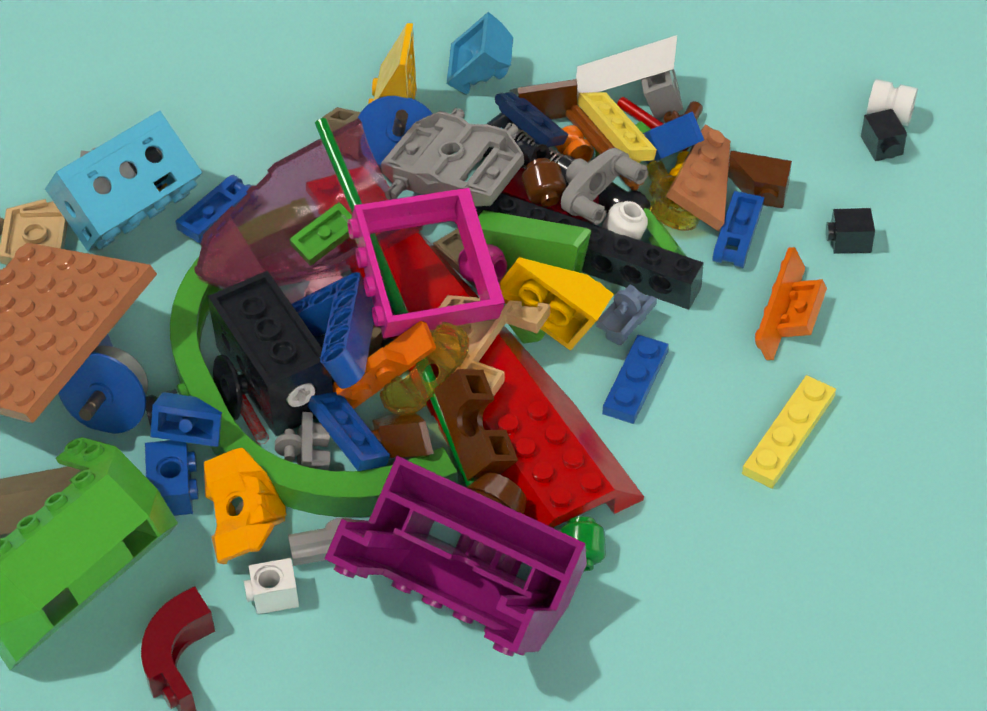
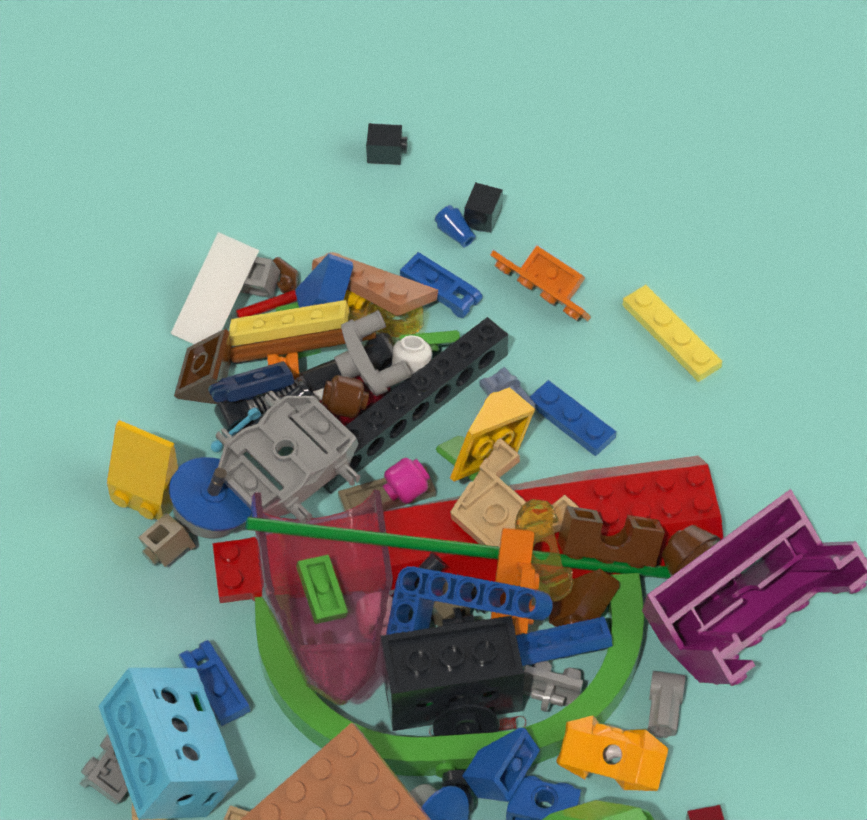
camera: 70 degrees left, 5 degrees up
(276, 574) = (697, 742): white brick -> none
(419, 211) = (447, 464): dark pink piece -> none
(480, 54) = (132, 395): dark azure brick -> none
(536, 240) = (409, 432): bright green slope -> none
(591, 534) = (737, 508): green head -> none
(761, 176) = (393, 245): reddish brown slope -> none
(817, 213) = (453, 224): none -> blue cone
(887, 97) = (351, 125): white wheel -> none

